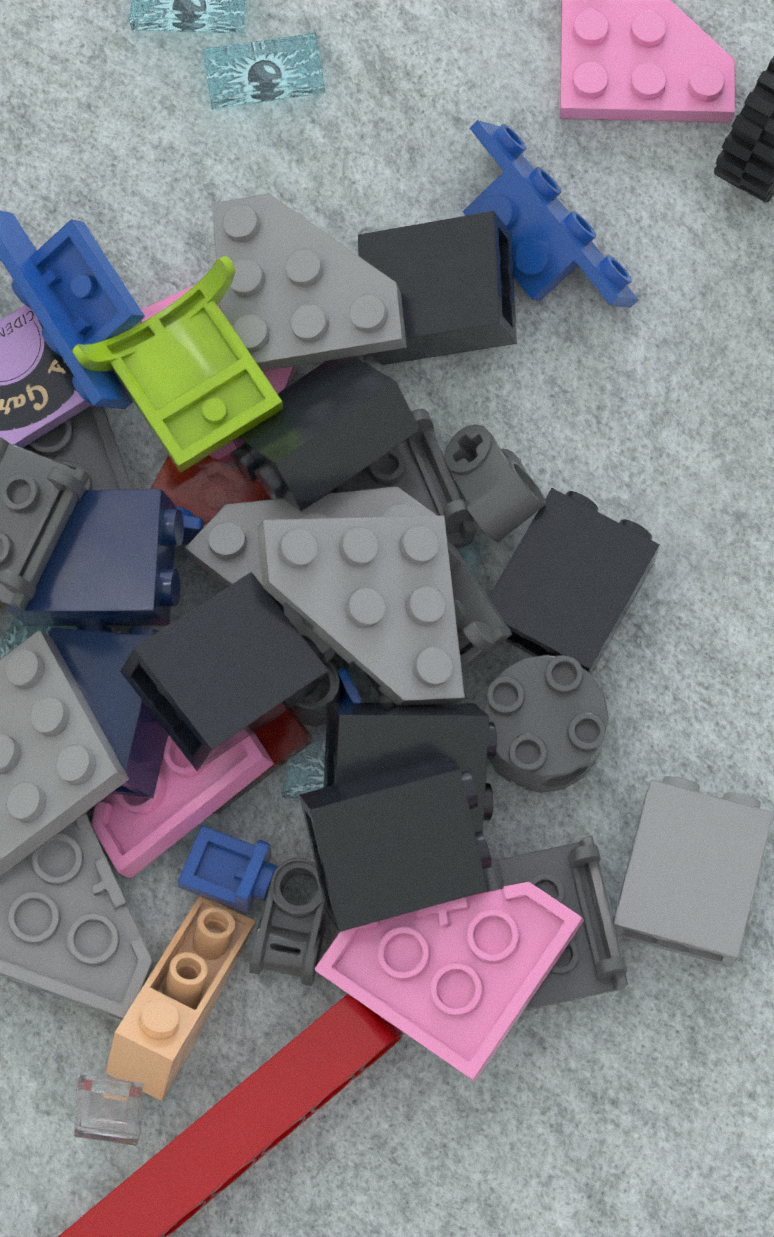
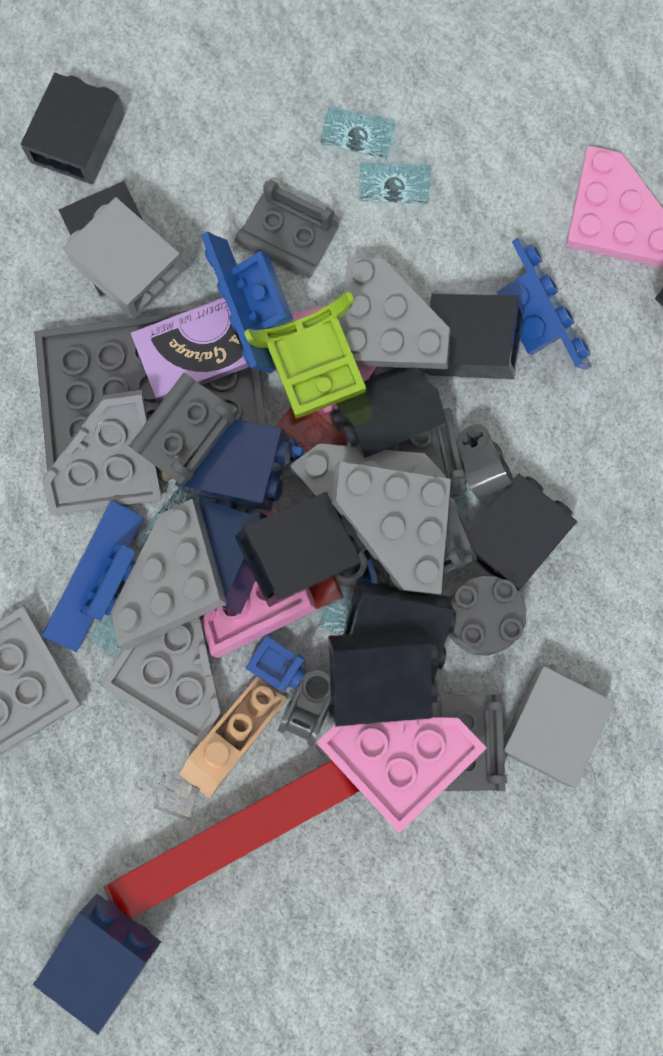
camera: 10 degrees right, 5 degrees up
(107, 177) = (289, 229): none -> dark grey piece

